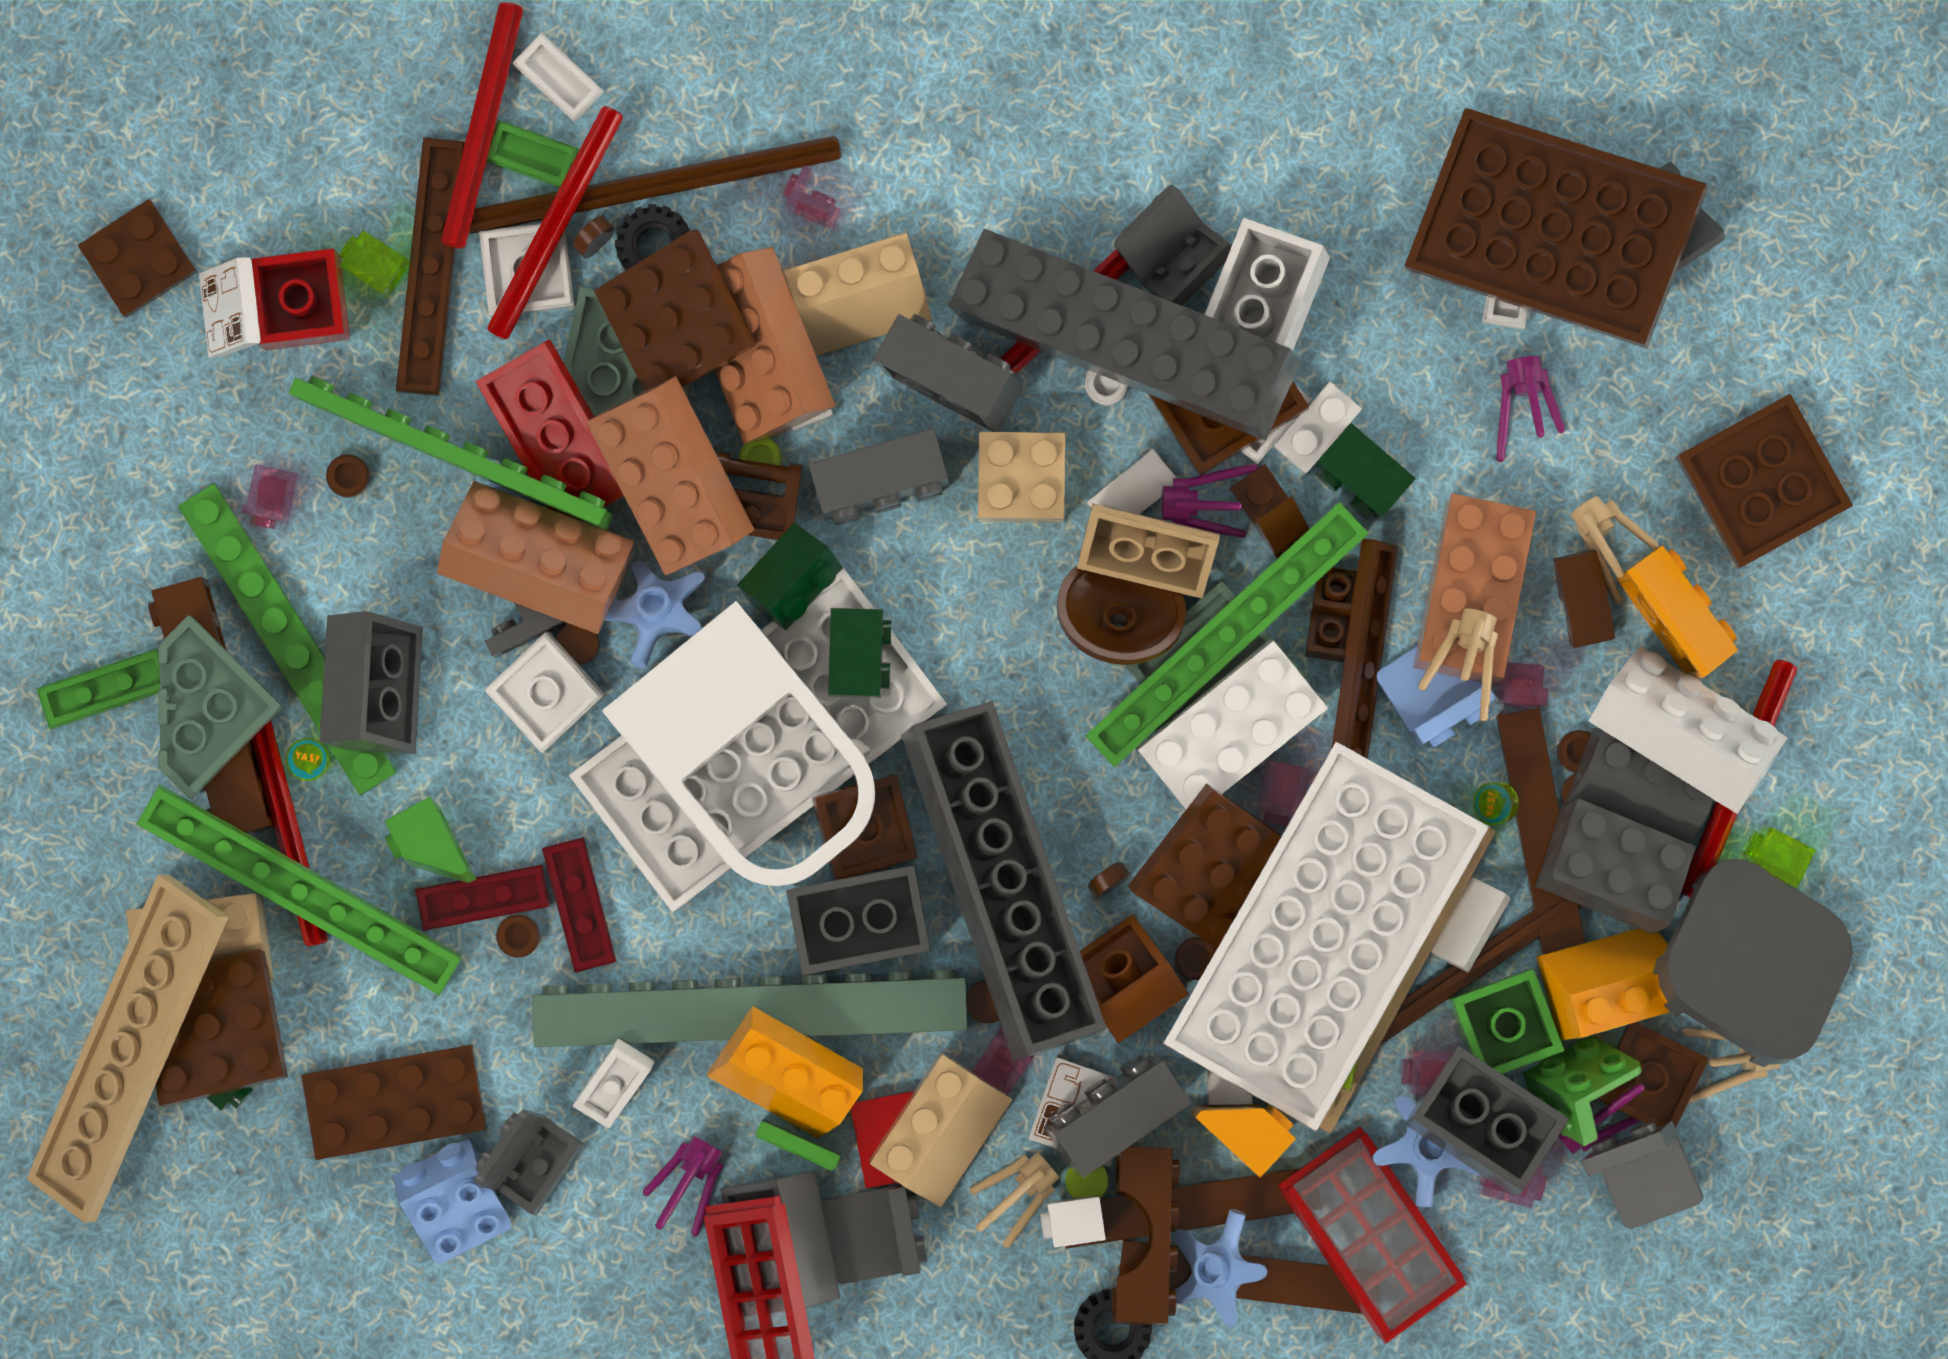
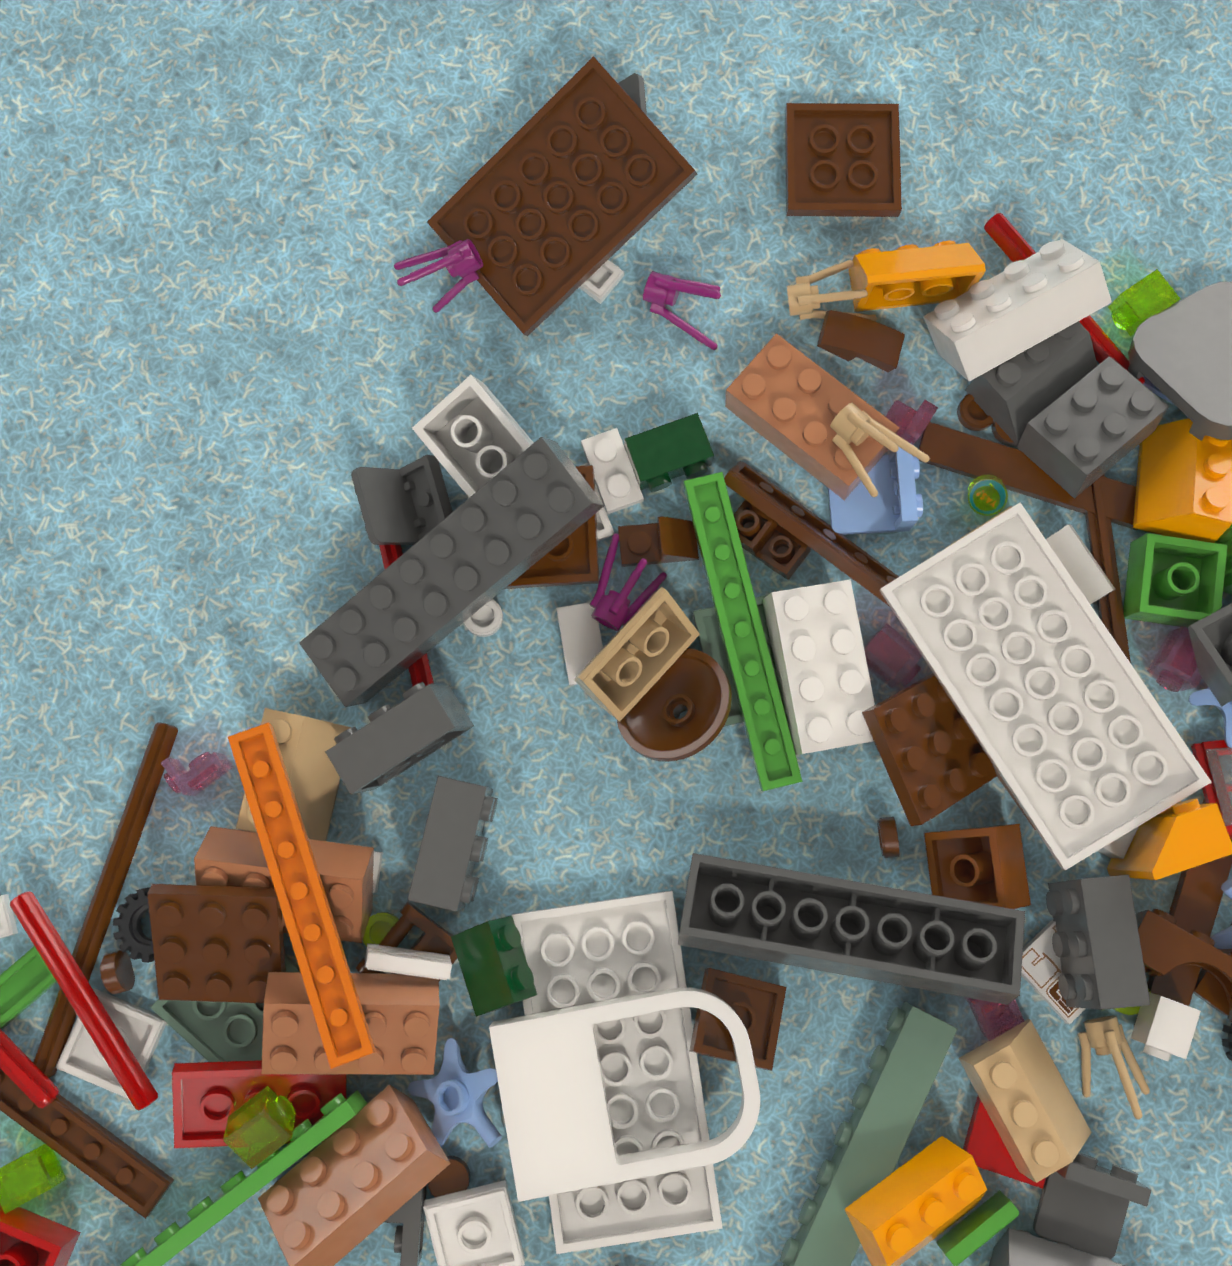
camera: 65 degrees left, 5 degrees down
(539, 447) = (260, 1127): none -> clear neon green brick
(751, 496) = (408, 962): none -> white tile
(765, 365) = (301, 896): none -> orange plate
(857, 653) = (590, 945): dark green brick -> none
(858, 920) = (816, 1070): dark grey brick -> none
(980, 1003) = (934, 1002): reddish brown tile -> none
(1021, 477) = (519, 725): tan brick -> none
(1193, 957) = (988, 801): reddish brown tile -> none
(1441, 166) = (459, 259): none -> magenta plant

